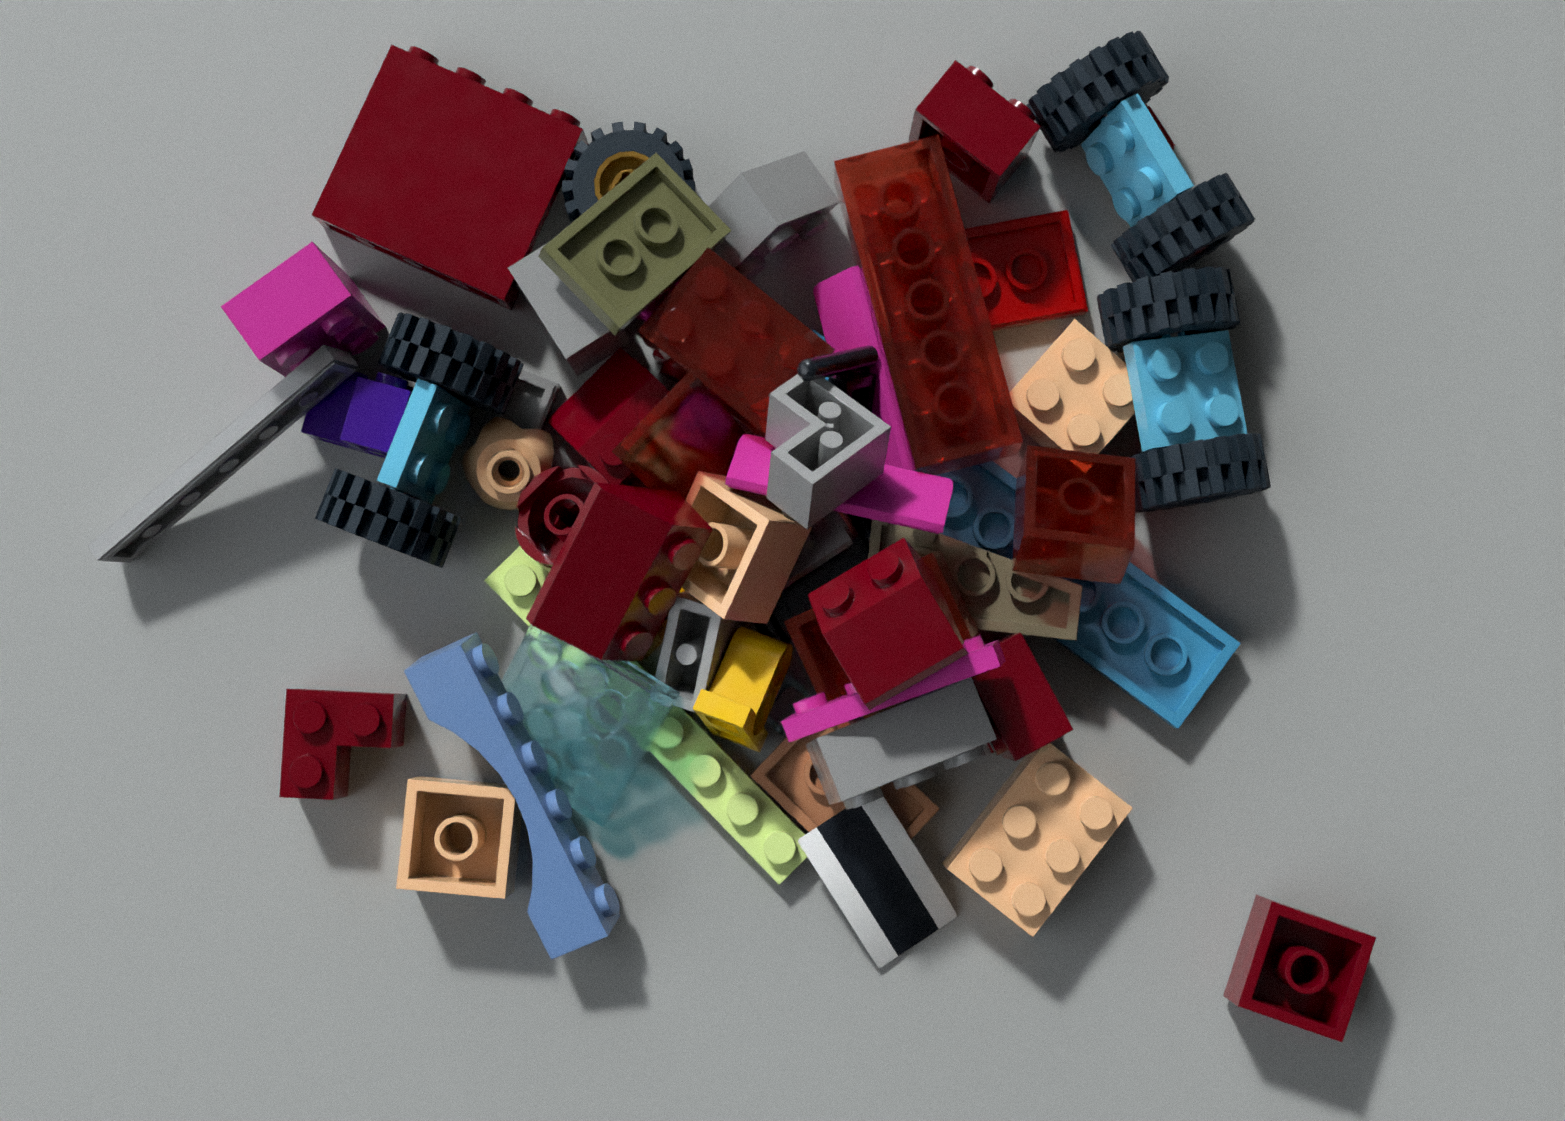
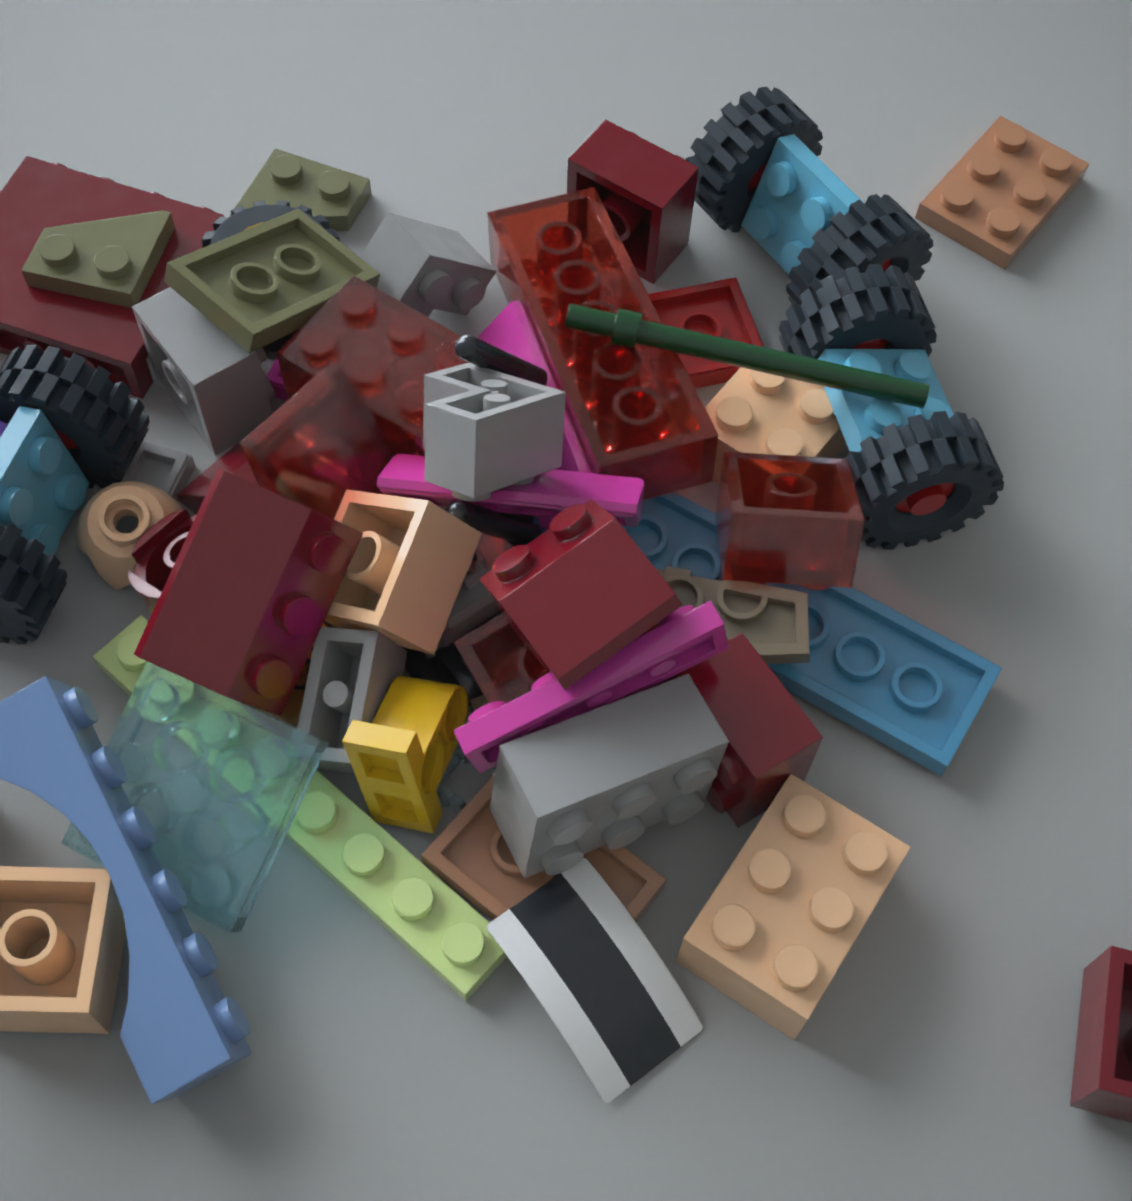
camera: 10 degrees left, 25 degrees down
(471, 181) = (100, 258): none -> olive wing
(653, 83) = (304, 182): none -> olive wing
(955, 325) = (629, 329): none -> dark green bar
(1348, 109) = (1001, 191): none -> nougat plate

